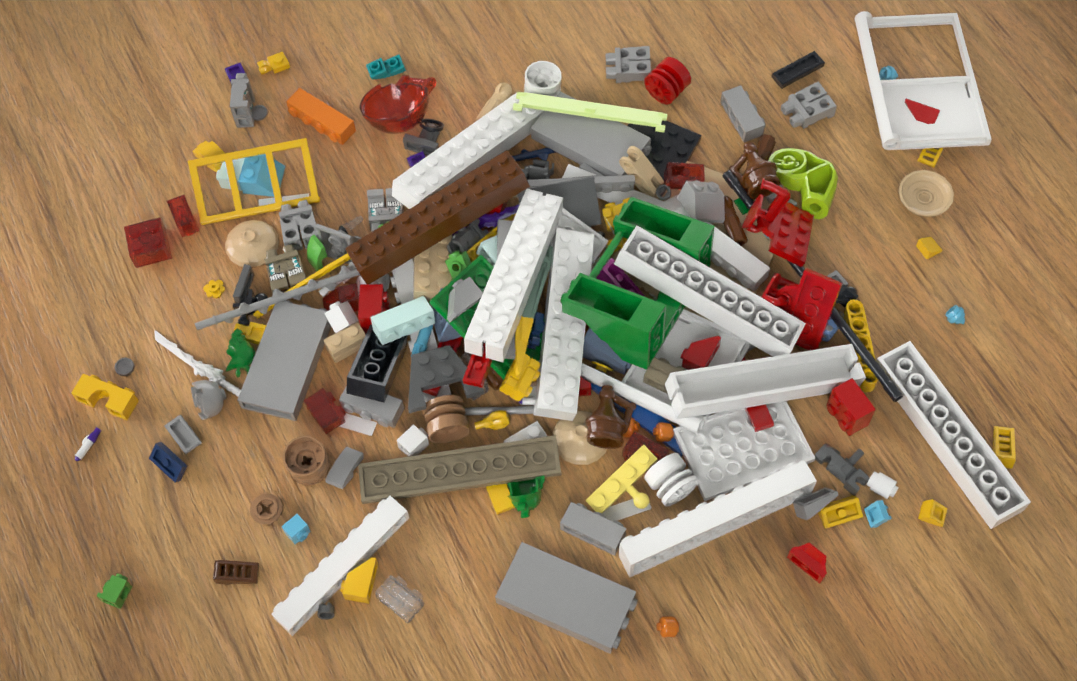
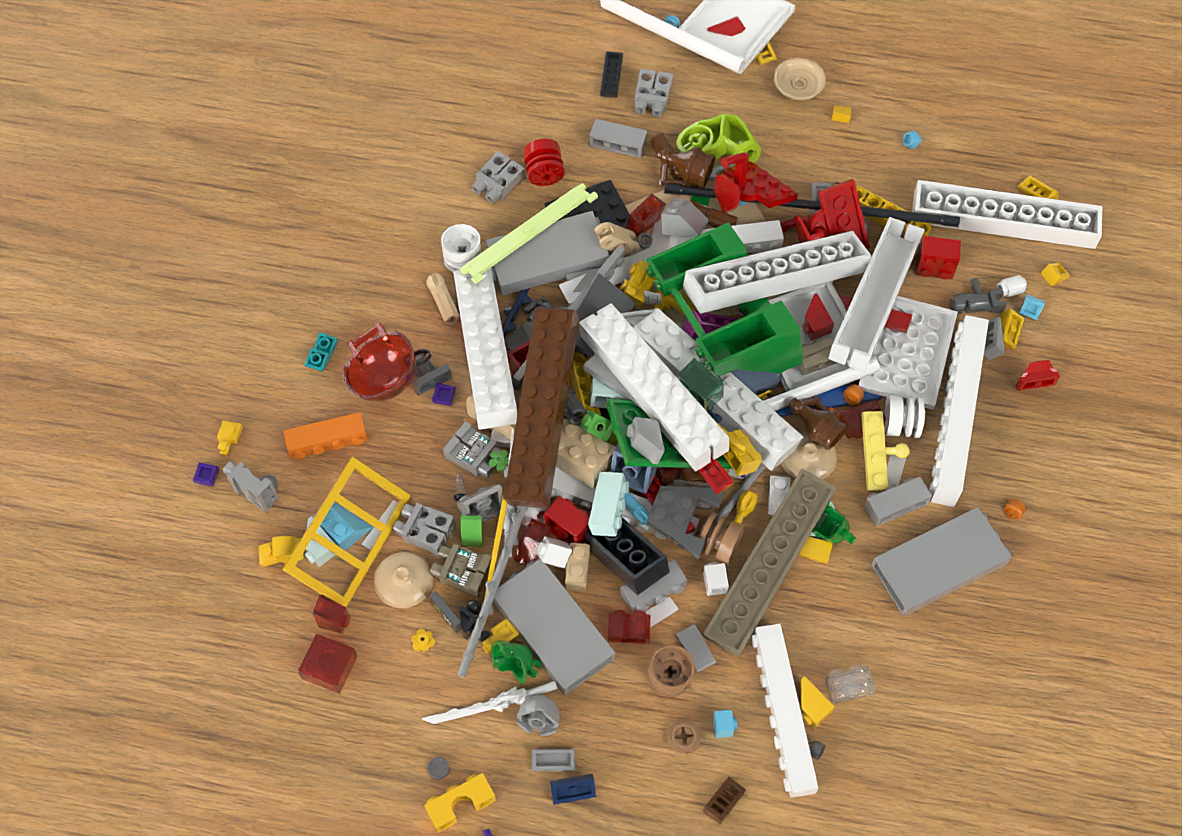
camera: 55 degrees left, 0 degrees up
(541, 303) = (702, 384): none -> clear green brick

